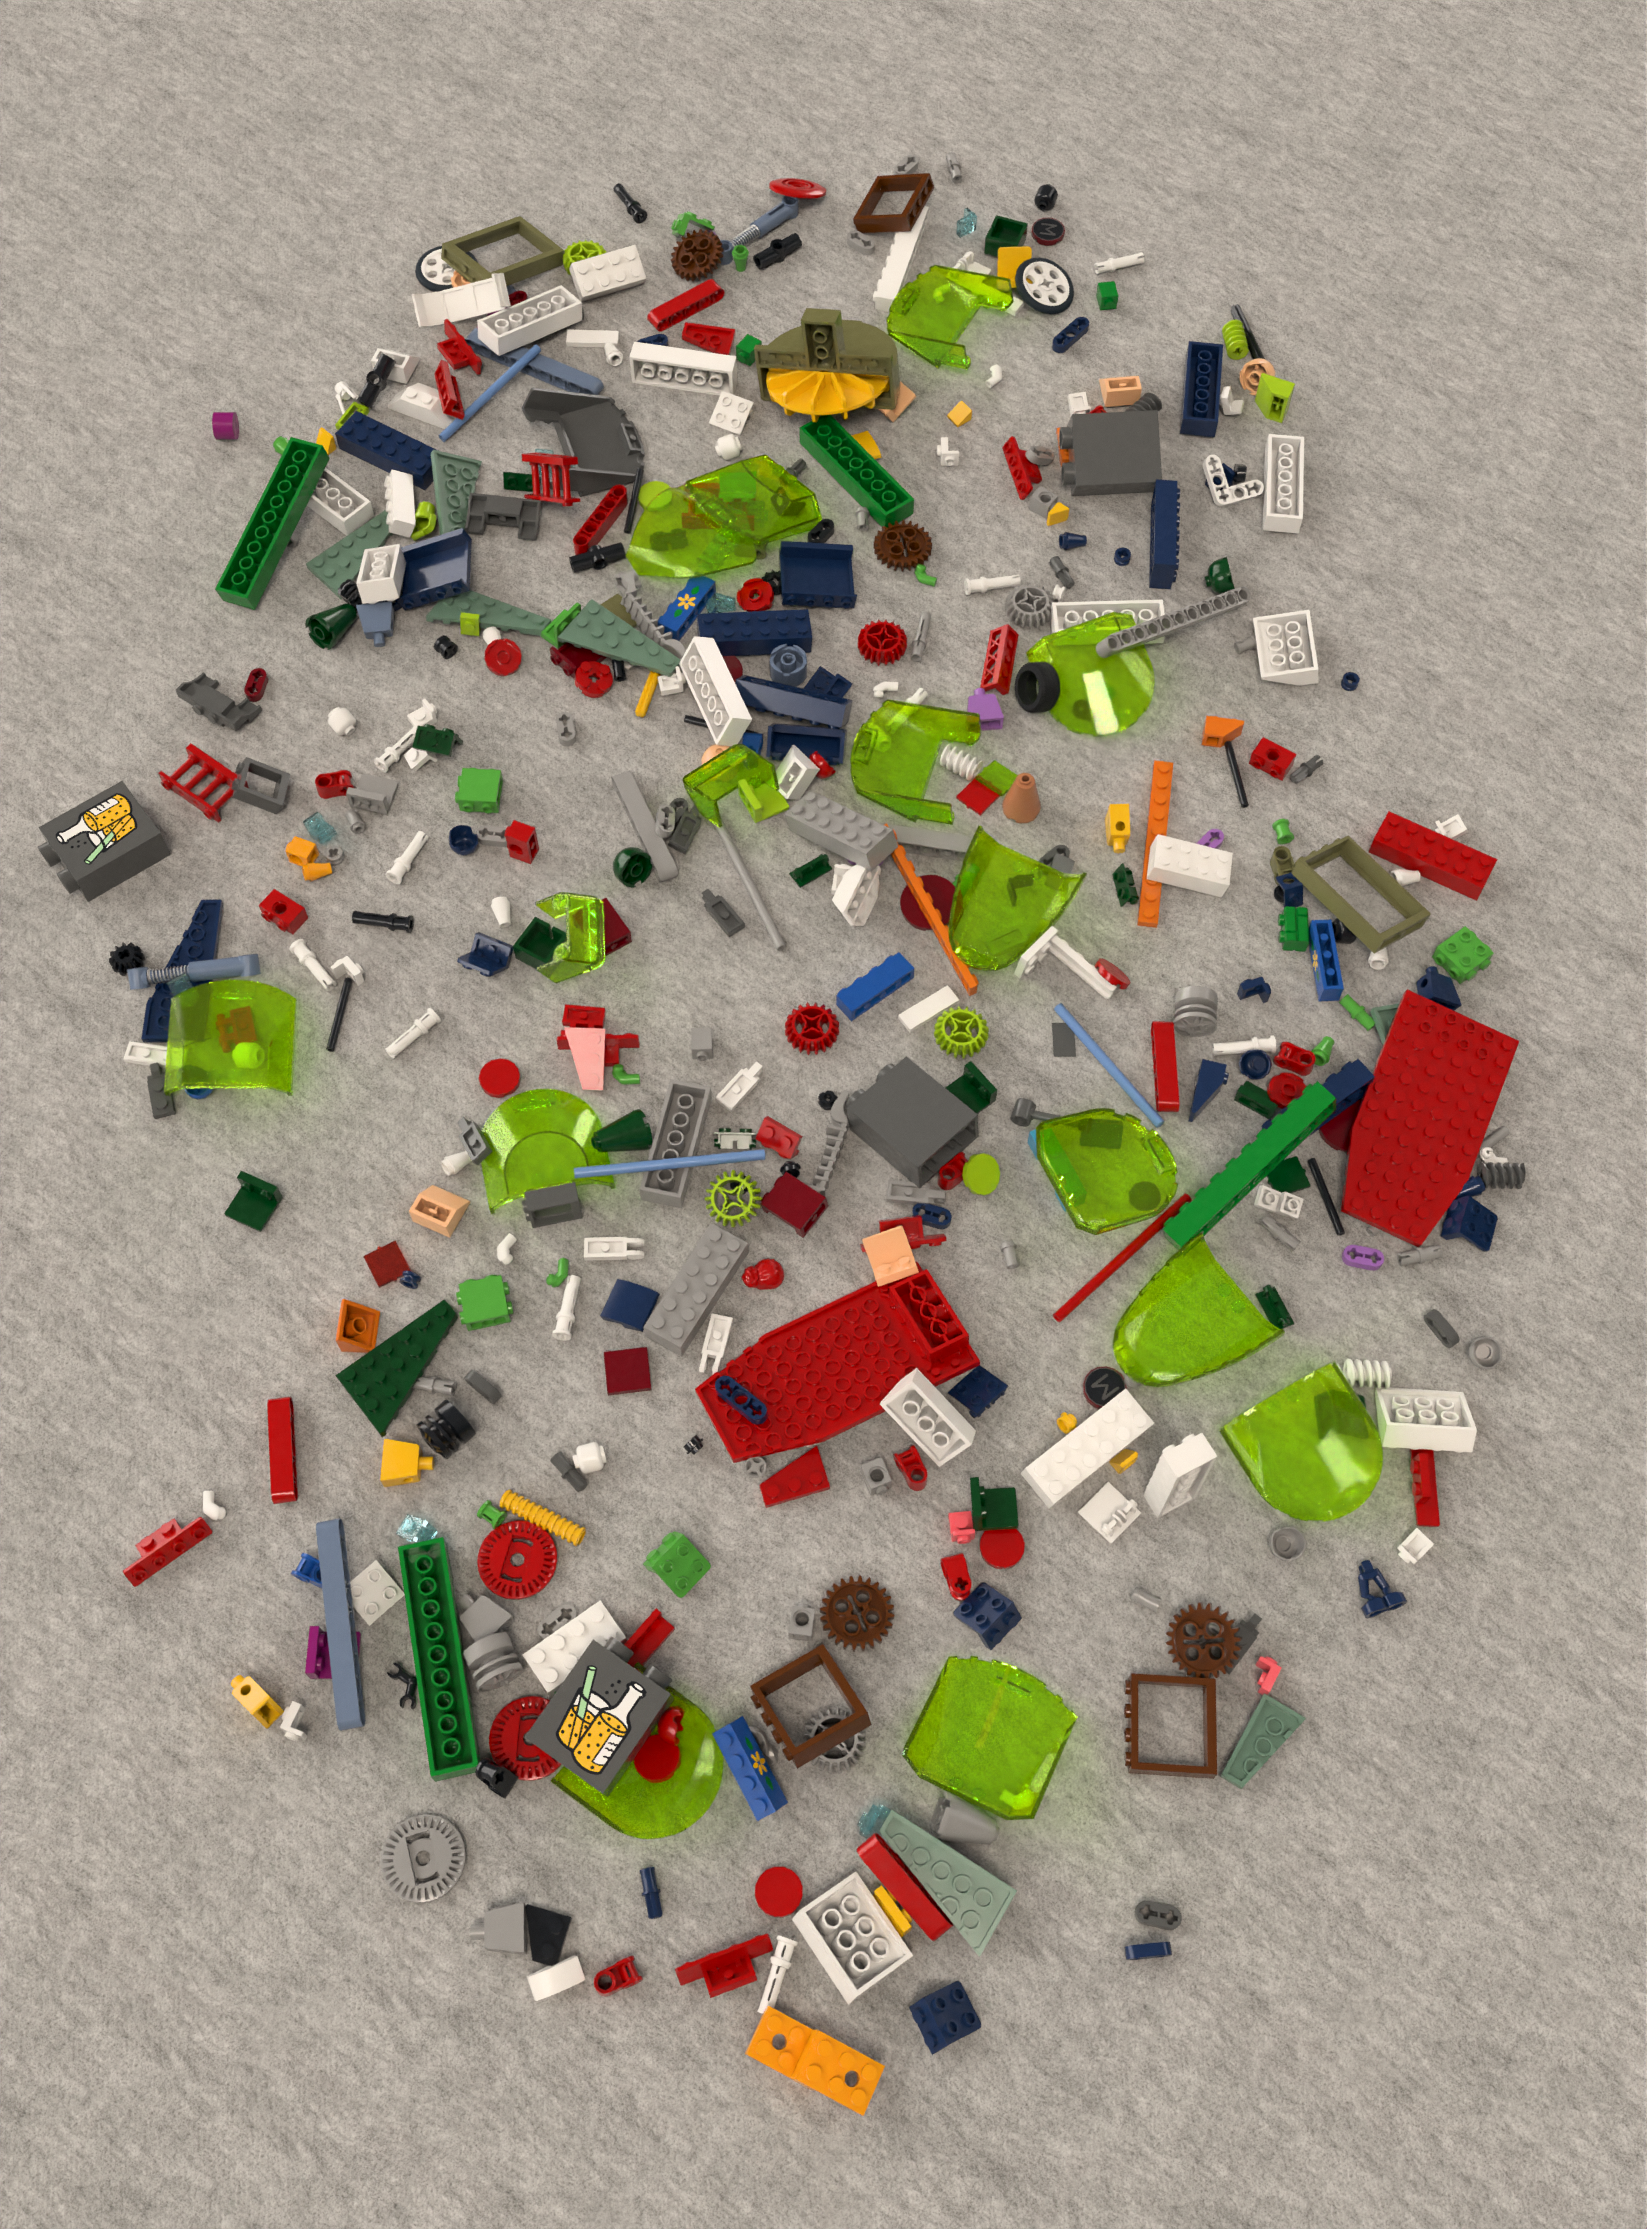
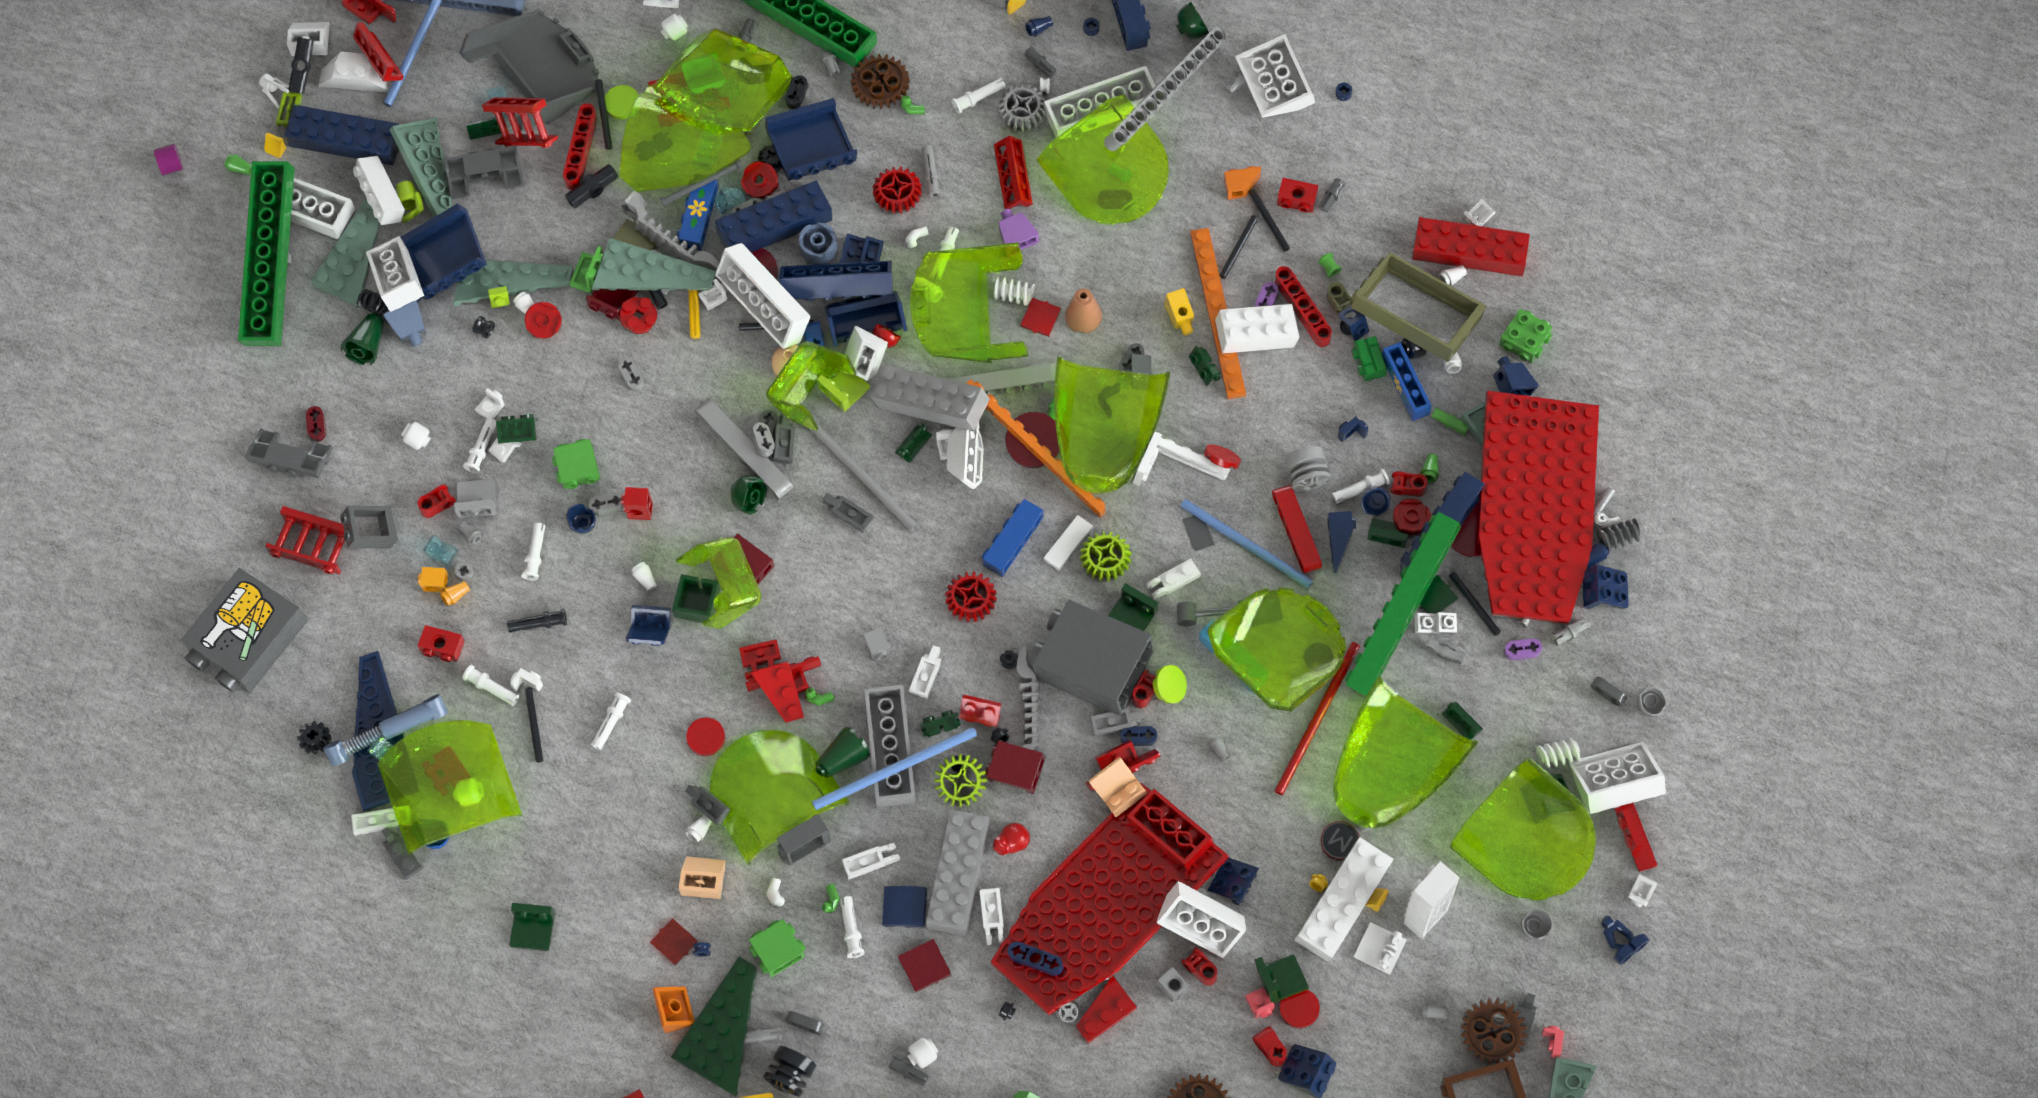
camera: 15 degrees left, 5 degrees up
(699, 580) = (686, 190): none -> dark grey bar
(997, 778) = (1052, 294): clear neon green piece -> none
(1022, 1075) = (1174, 578): none -> white hinge
(1026, 687) = (1069, 188): black tyre -> none
(1197, 789) = (1238, 247): none -> black piece
(1247, 867) = (1303, 314): none -> red beam

